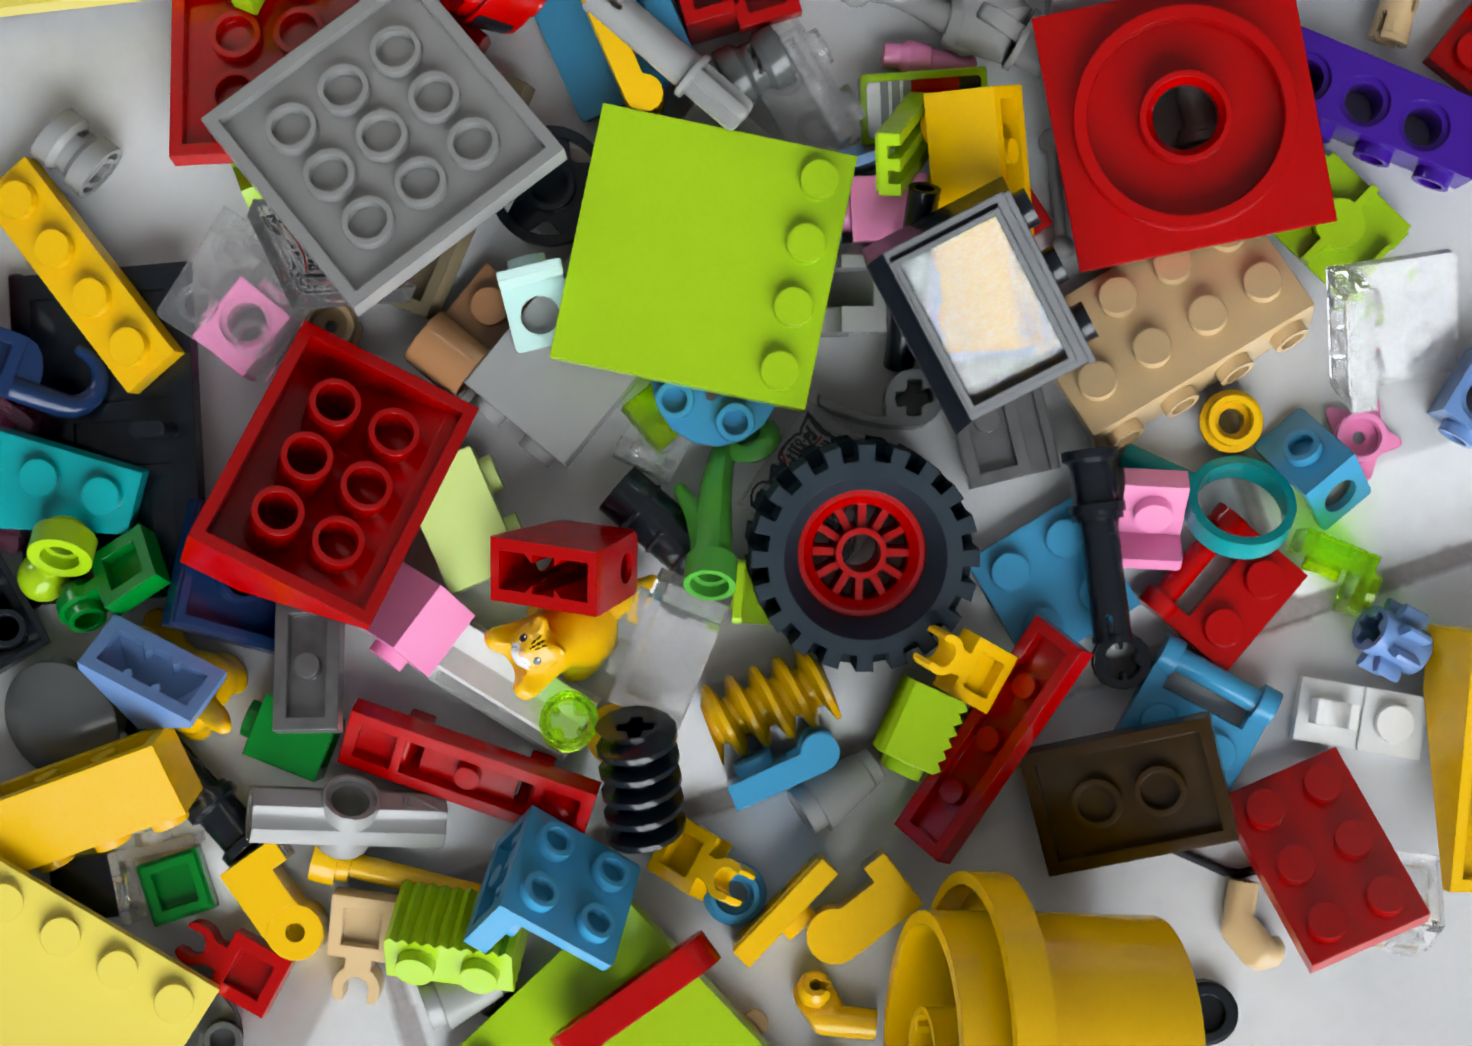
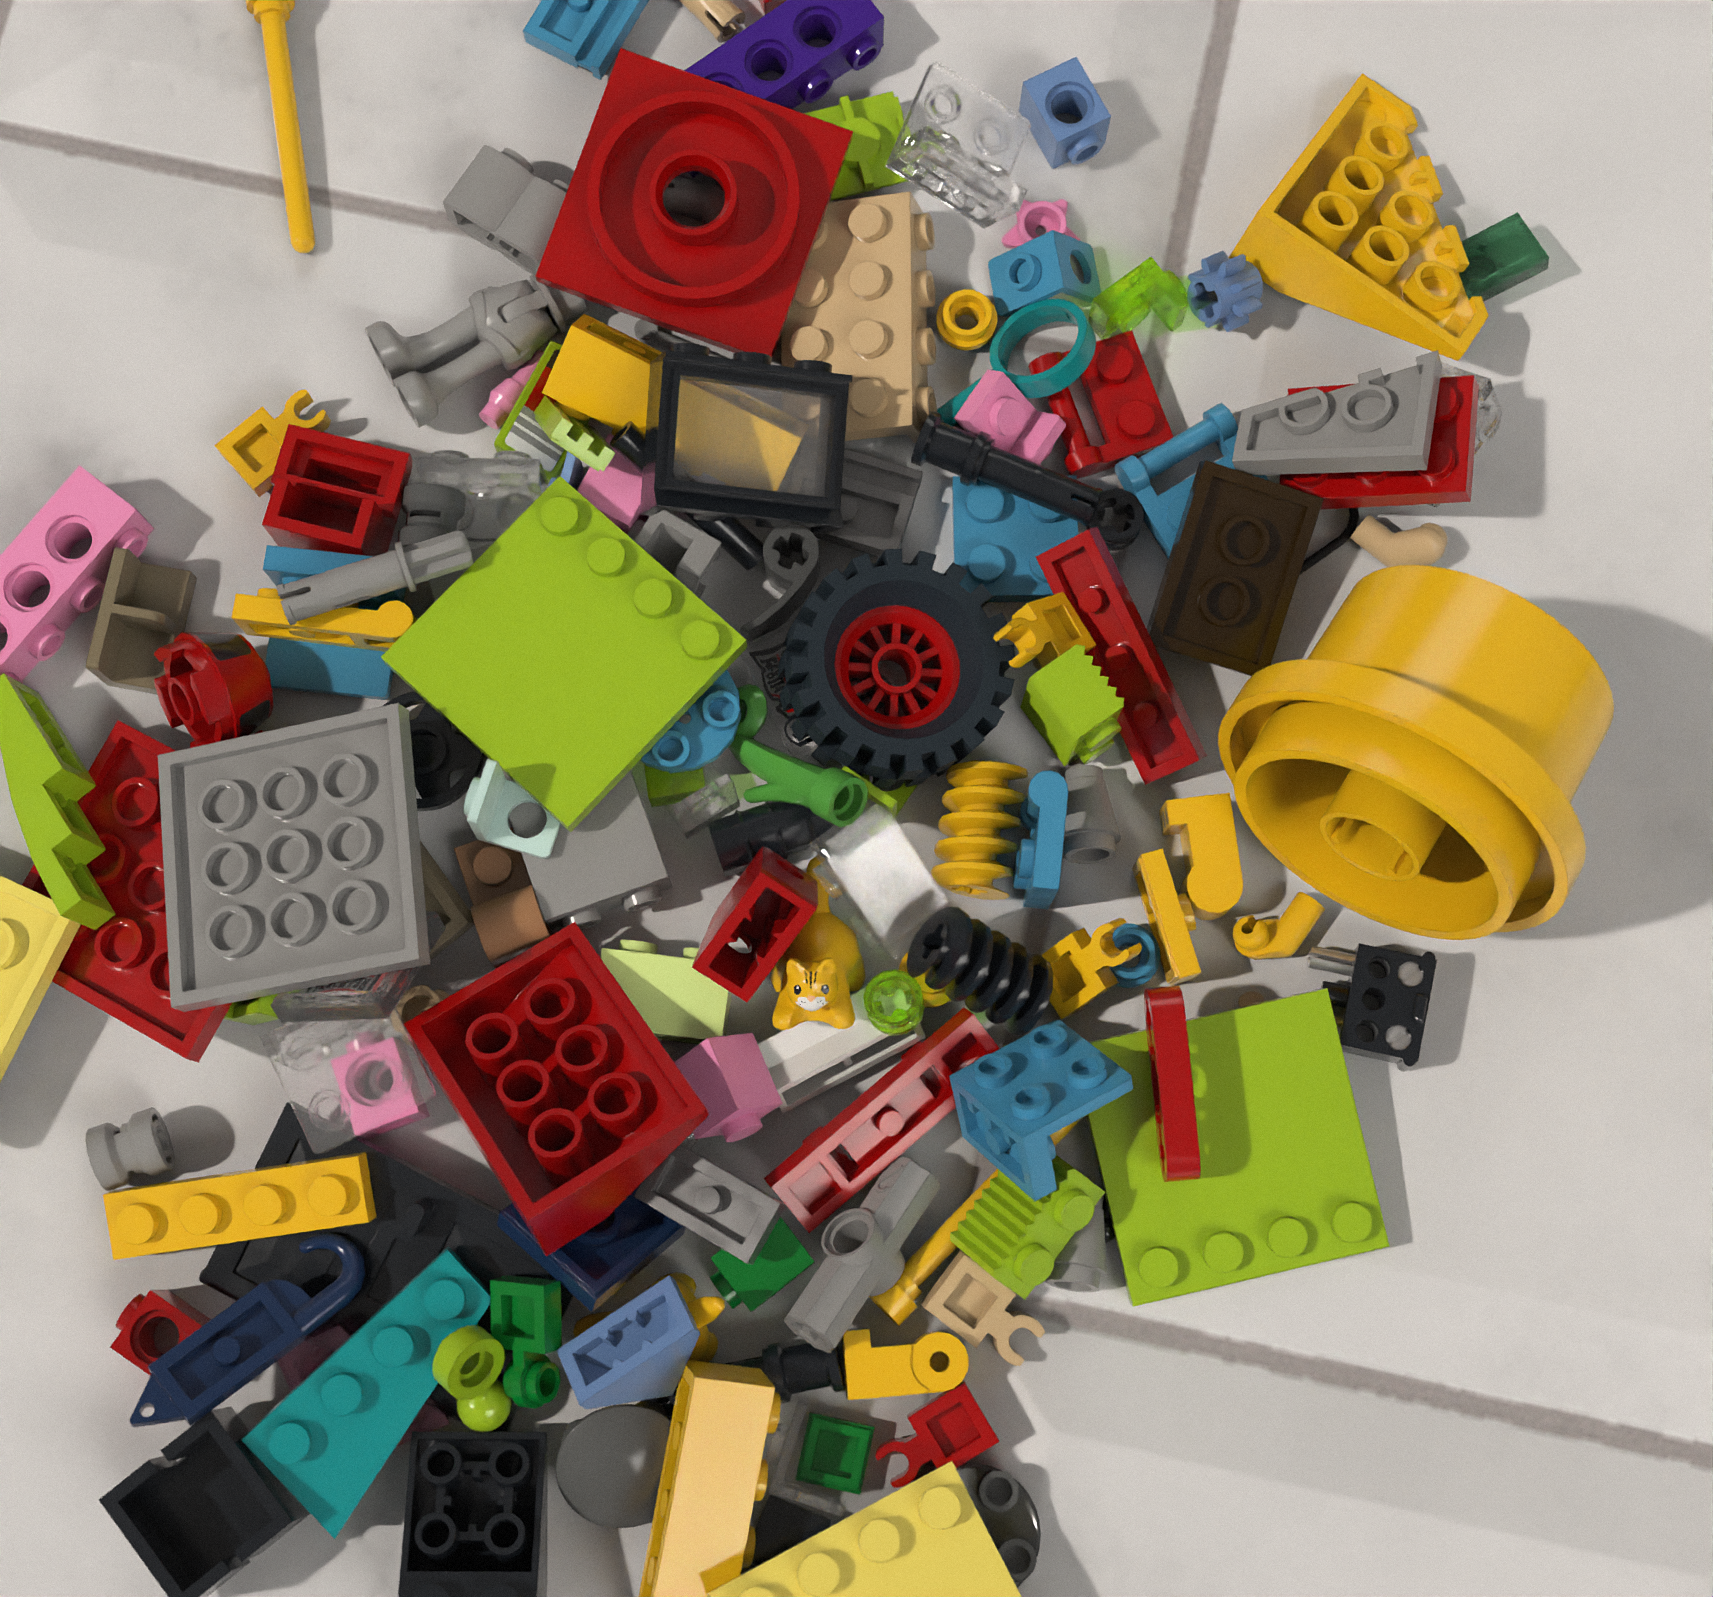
camera: 60 degrees left, 10 degrees down
(1316, 831) = (1356, 428): none -> light grey wing
(1358, 717) = (1274, 355): white plate -> none

